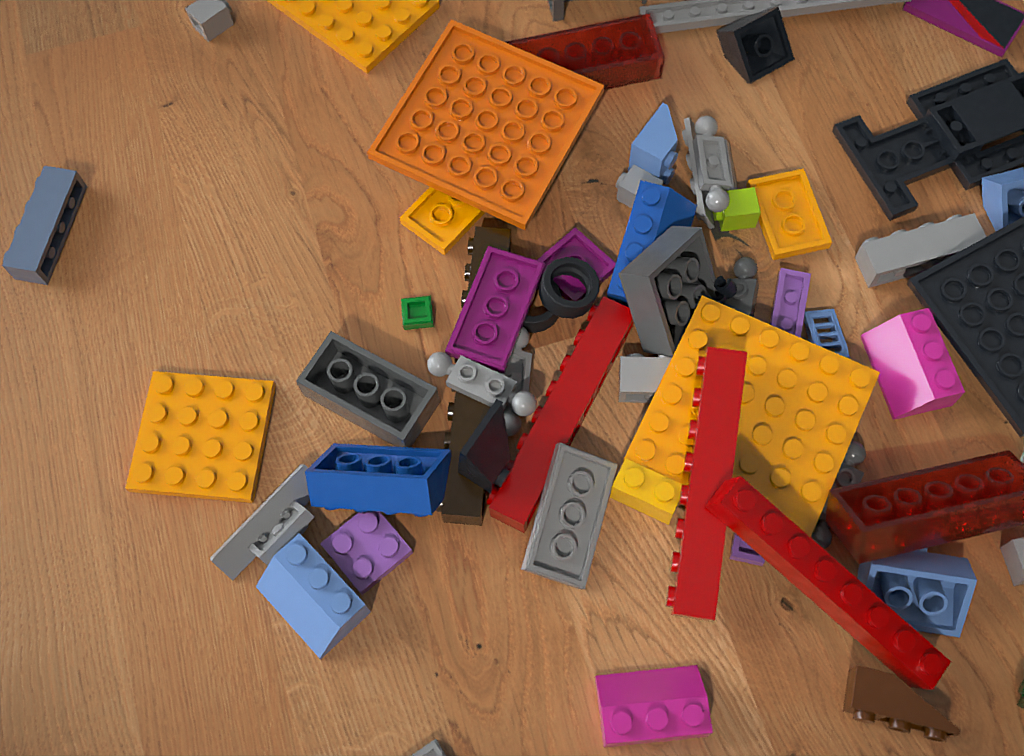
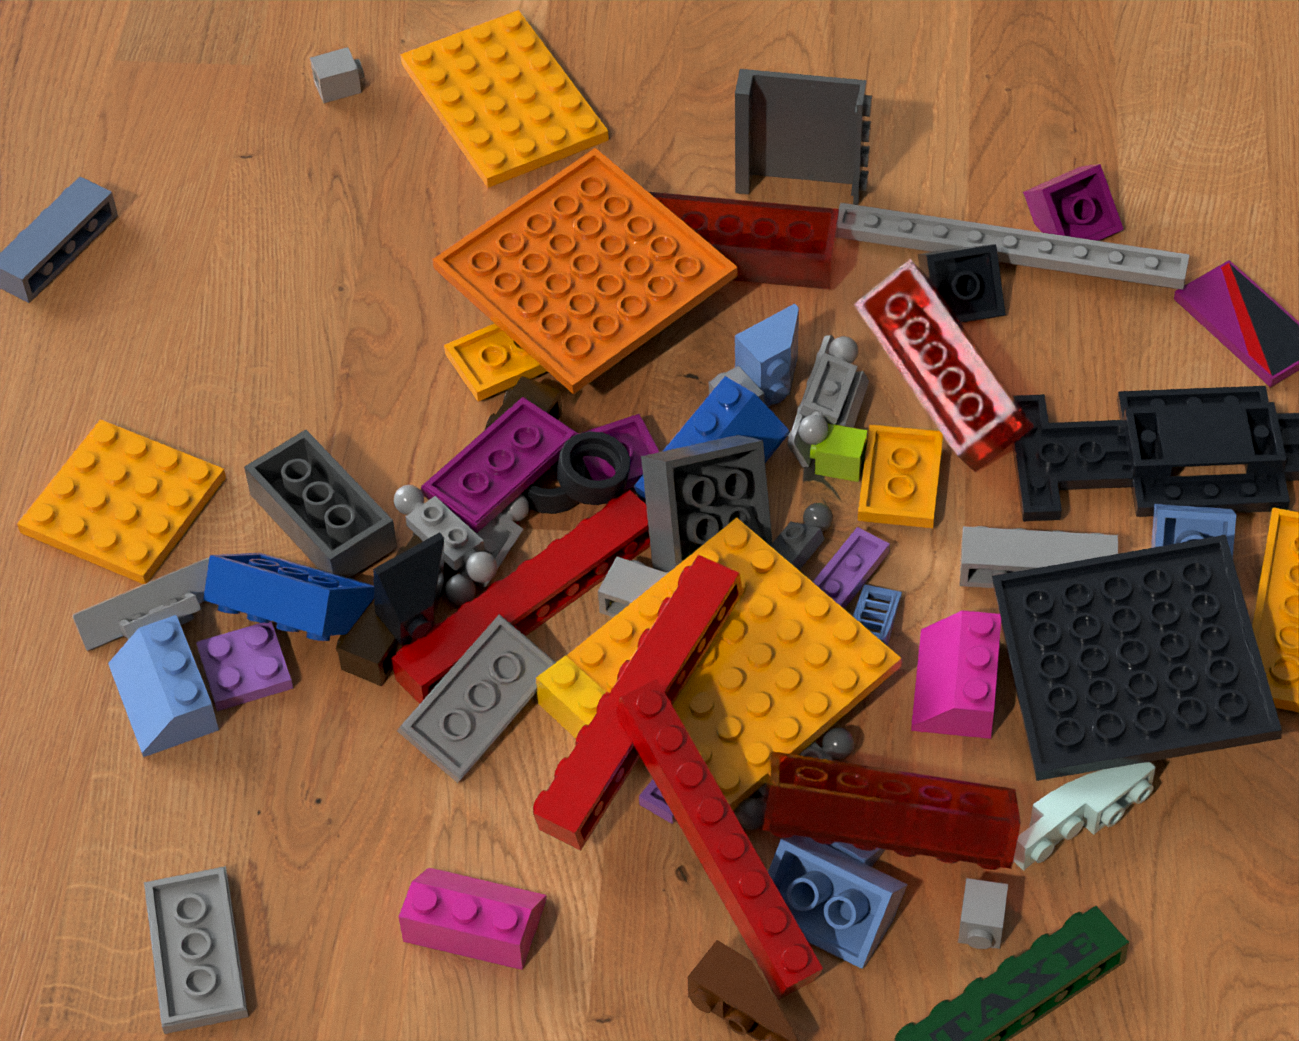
camera: 20 degrees right, 15 degrees down
(417, 312) = (417, 451): green tile -> none
(725, 289) = (777, 526): black hand -> none
(784, 115) = (943, 366): none -> clear red brick

